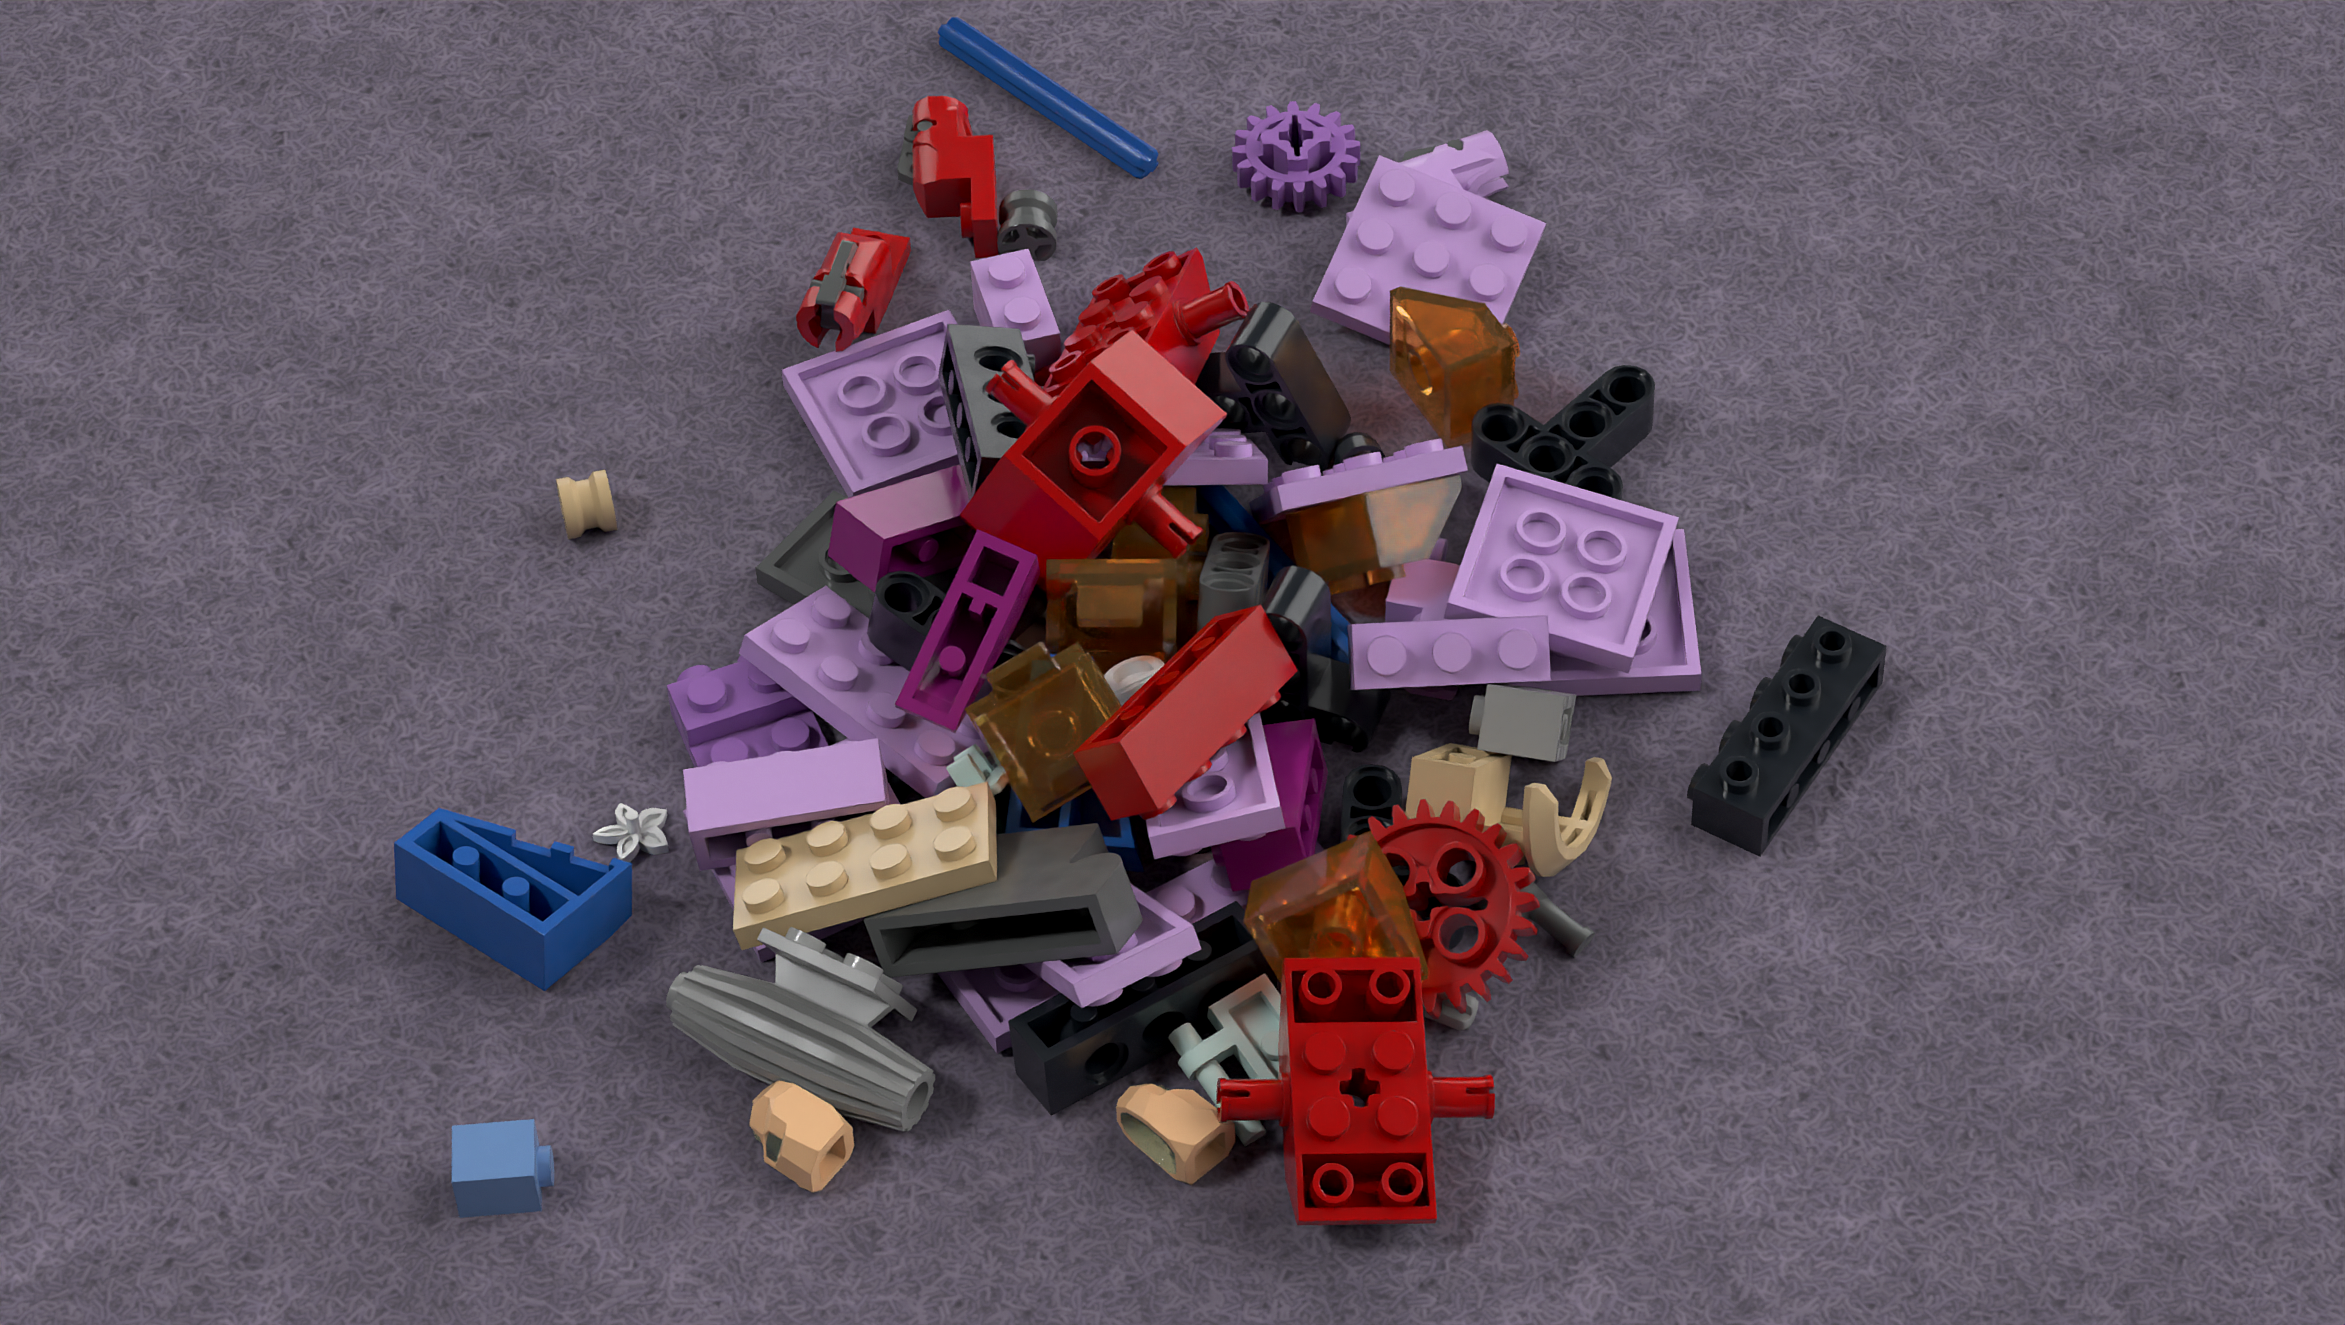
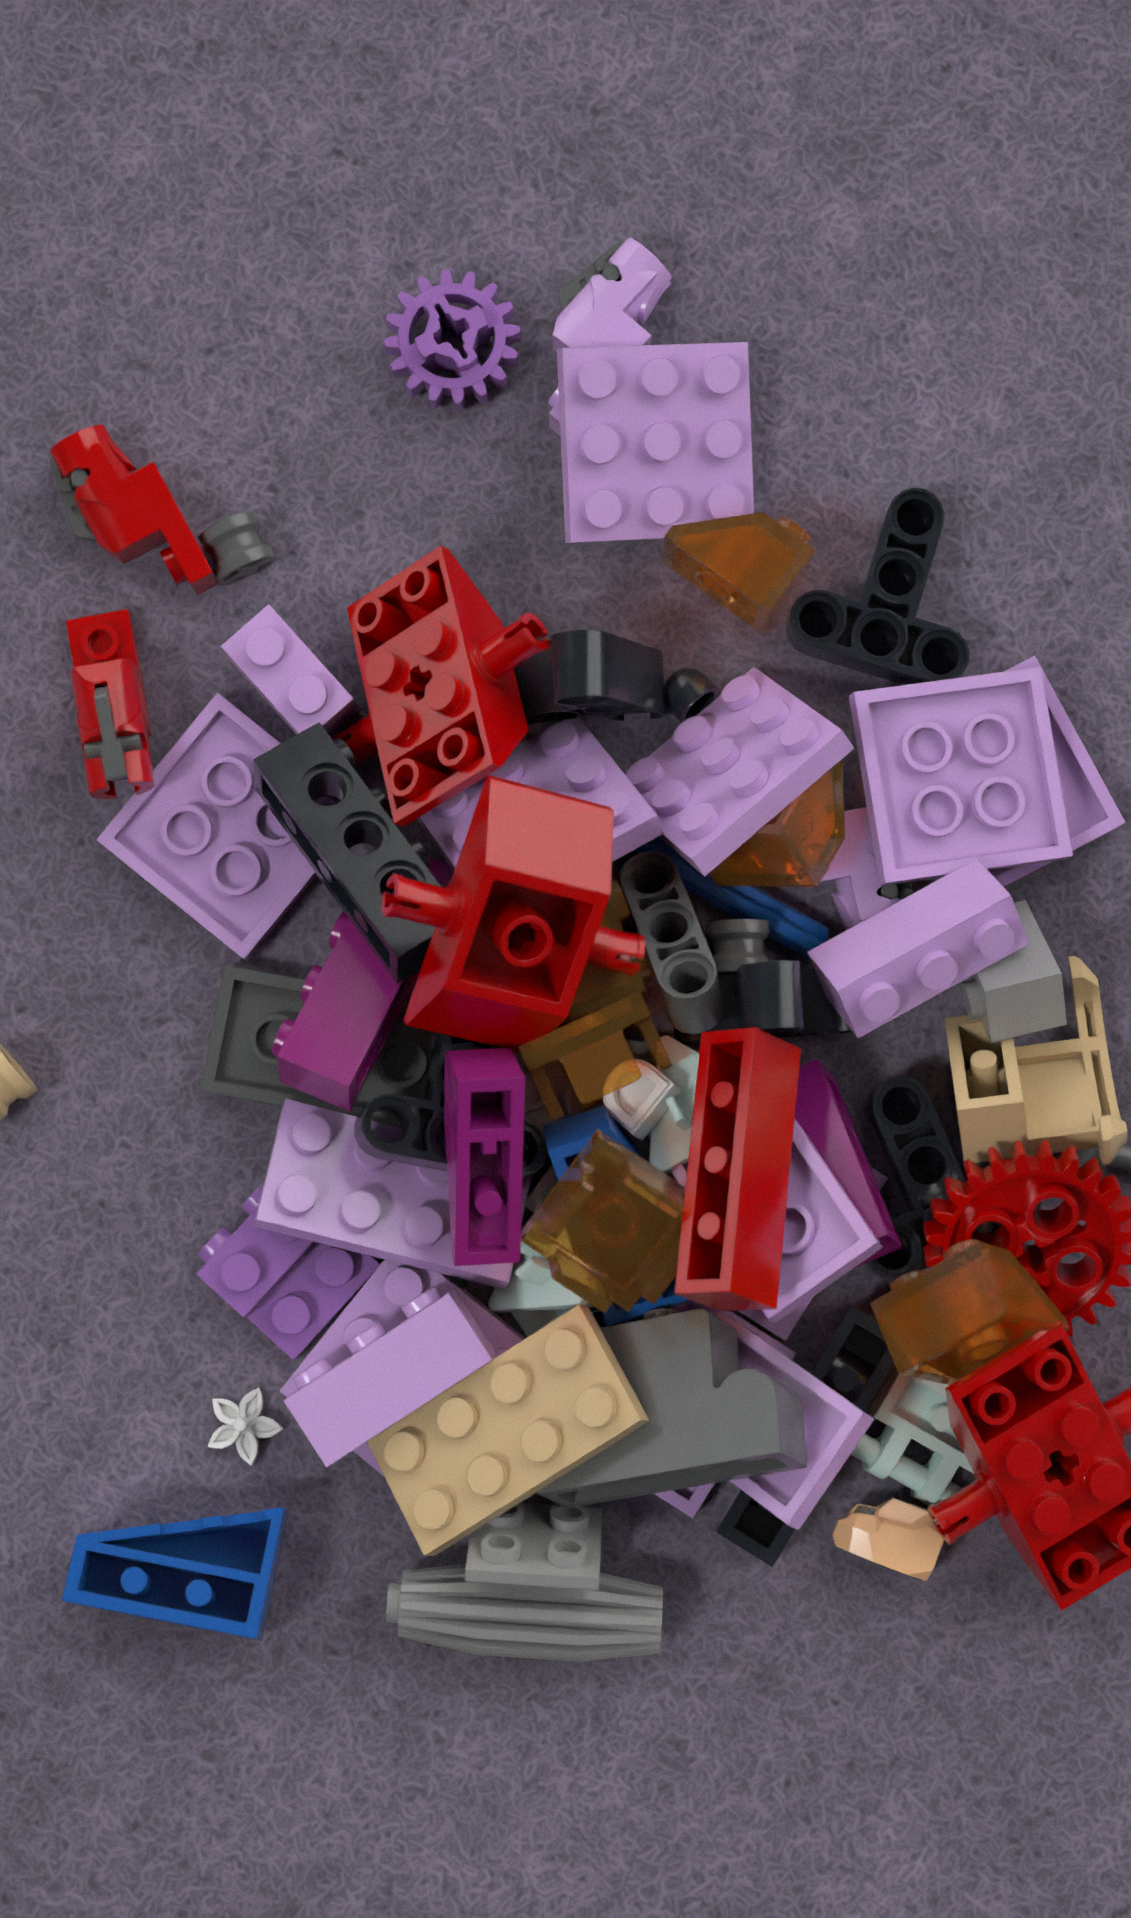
camera: 25 degrees left, 35 degrees up
(499, 1168) = (331, 1854): medium blue brick -> none
(801, 1134) = (570, 1695): light nougat rock -> none
(1048, 98) = (164, 360): blue axle -> none

